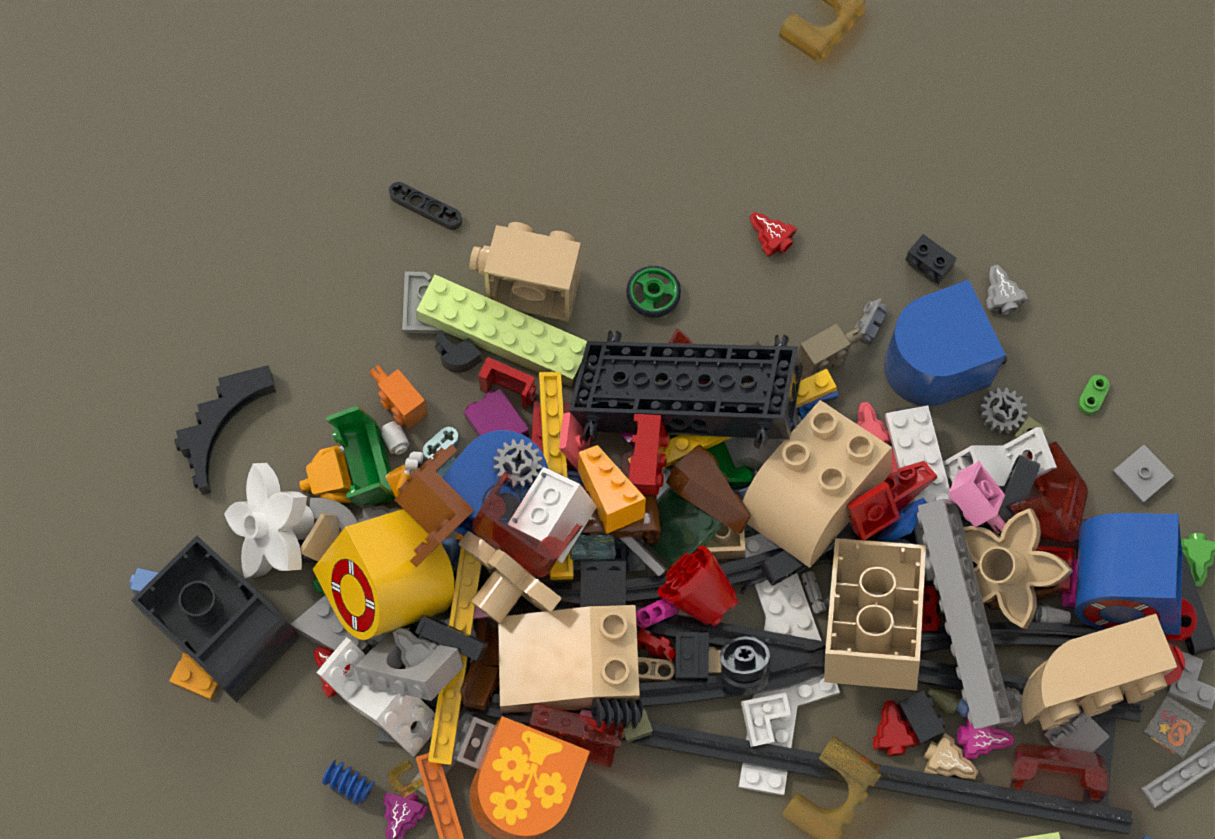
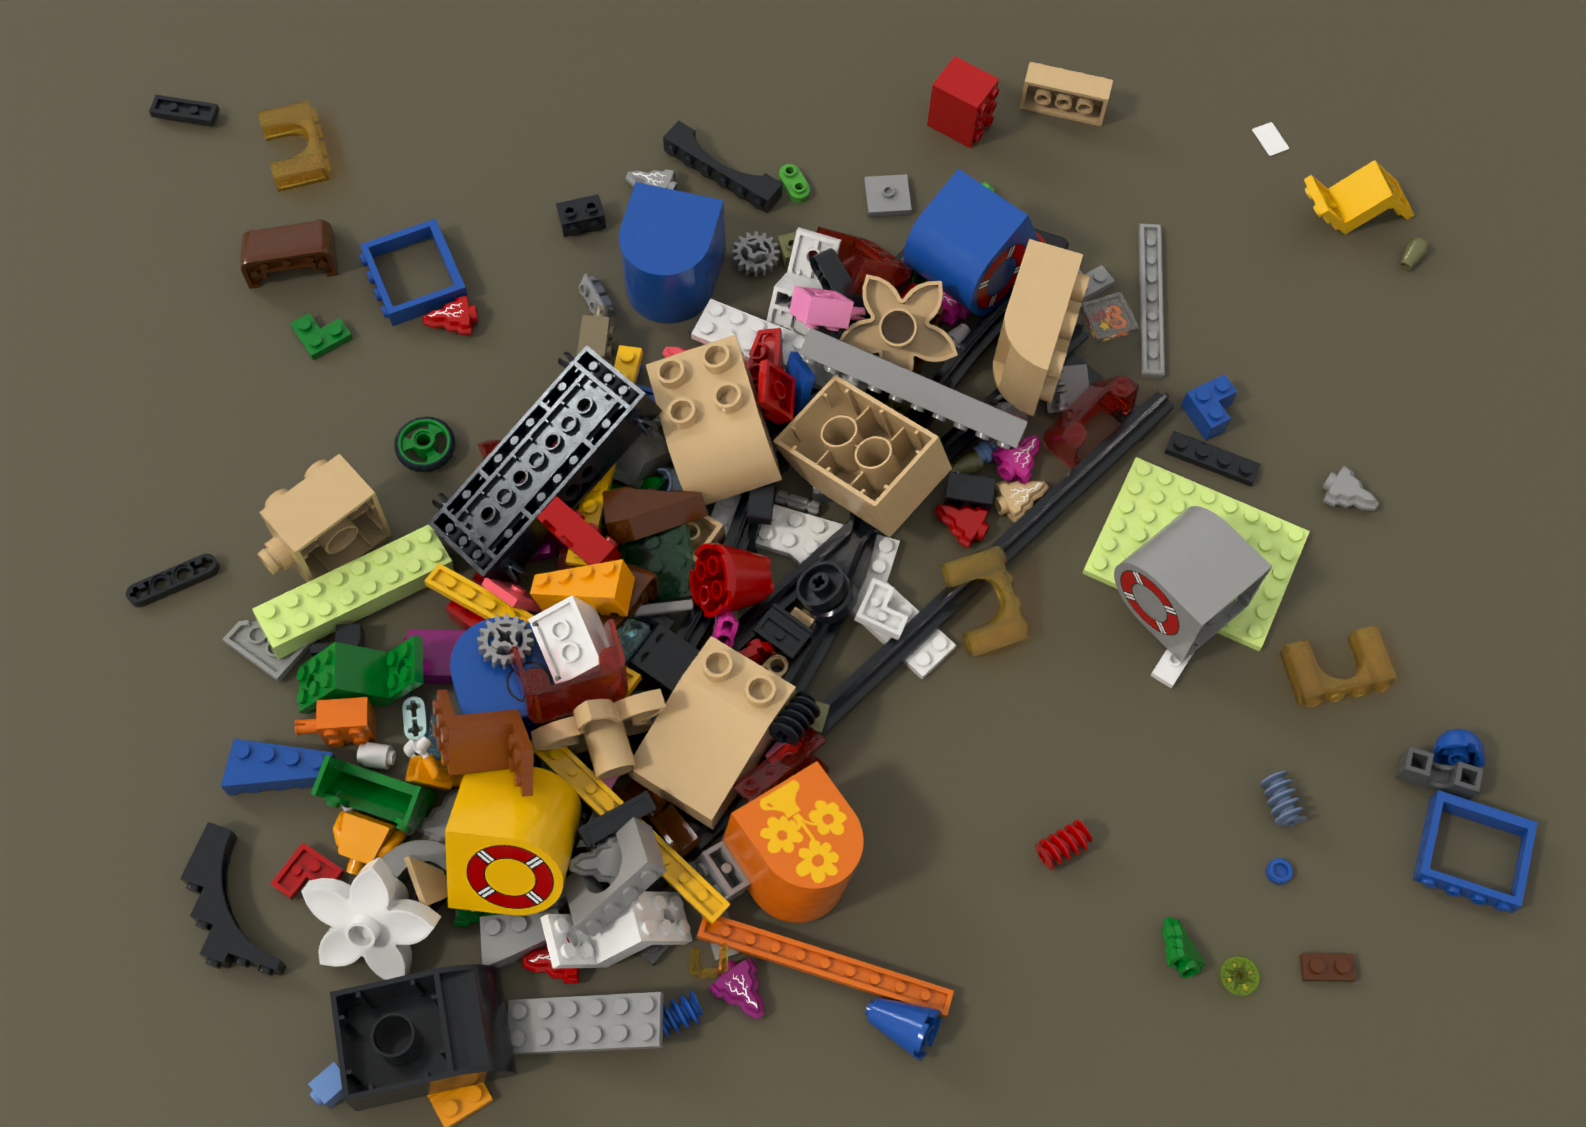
camera: 55 degrees left, 5 degrees down
(285, 452) = (304, 866): none -> red plate
(301, 724) = (586, 1023): none -> light grey plate
(335, 374) = (268, 766): none -> blue wedge
(441, 383) = (358, 672): none -> green bracket
(508, 378) = (408, 614): red panel -> none
(681, 157) = (318, 340): none -> green plate
(733, 80) = (287, 249): none -> reddish brown windscreen
(769, 208) = (424, 304): none -> blue window
(1062, 375) = (758, 190): none -> black arch

